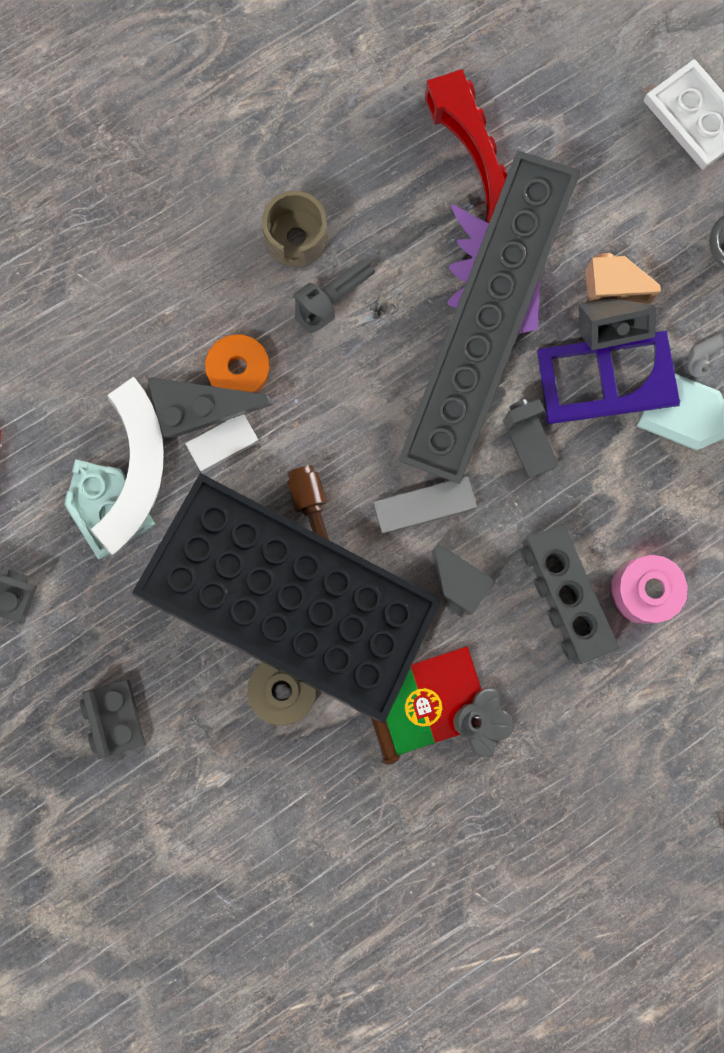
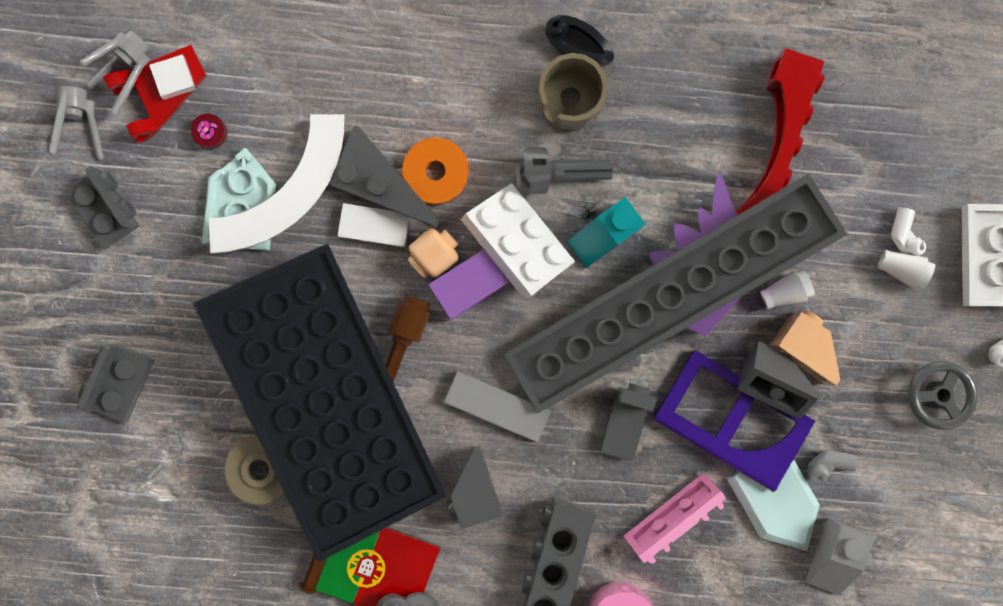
camera: 45 degrees right, 5 degrees up
(36, 469) = (209, 131): none -> dark red tile
(260, 188) = (579, 37): none -> black arm
(285, 426) = (433, 253): none -> light nougat head
(330, 428) = (468, 284): none -> medium lavender panel
(341, 367) = (517, 241): none -> white plate
(402, 312) = (606, 232): none -> teal slope
(571, 251) = (789, 290): none -> white cone
(619, 153) = (903, 236): none -> white arm
(624, 482) = (675, 518): none -> bright pink plate
(642, 172) = (909, 269): none -> white cone

